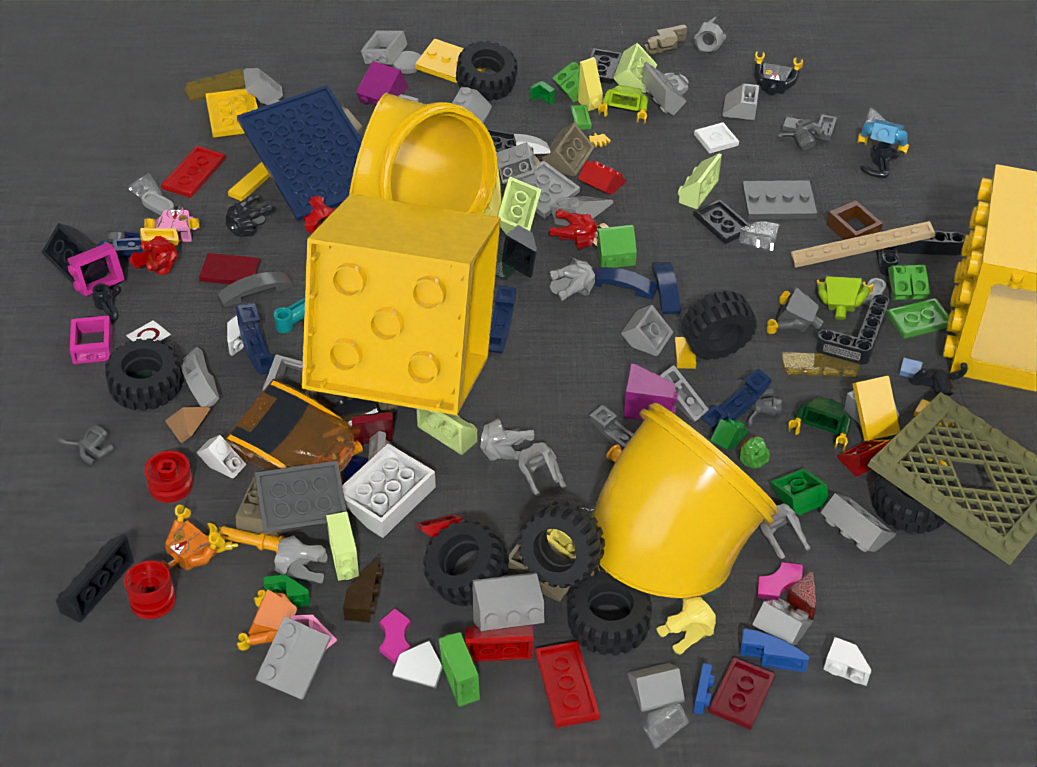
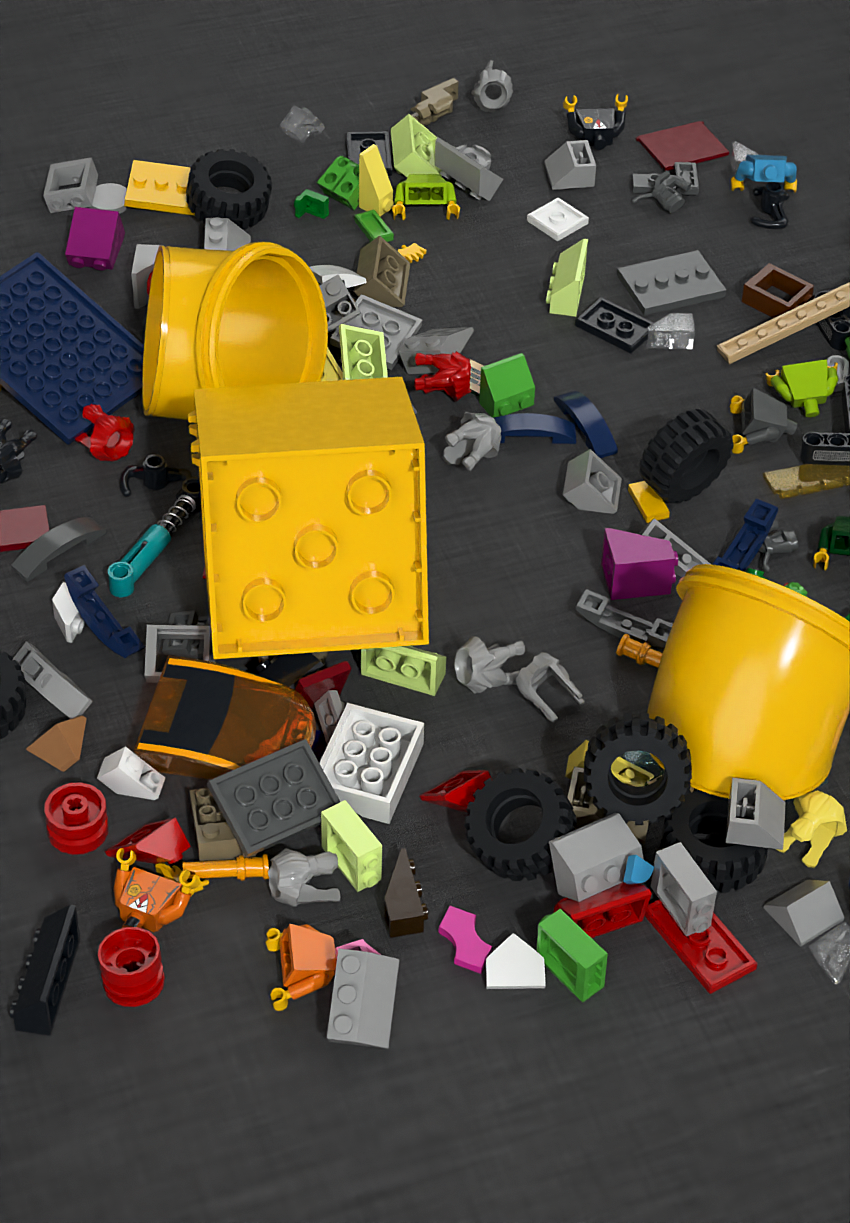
camera: 20 degrees left, 0 degrees up
(212, 508) = (154, 843): none -> red slope
(283, 584) = (304, 913): green slope -> none
(532, 620) = (637, 870): none -> dark azure tile
(561, 36) = (301, 124): none -> clear brick
(563, 643) = (683, 889): none -> light grey window
(601, 177) = (441, 301): red slope -> none
(636, 602) = (755, 815): none -> light grey slope
(835, 103) = (683, 144): none -> dark red piece

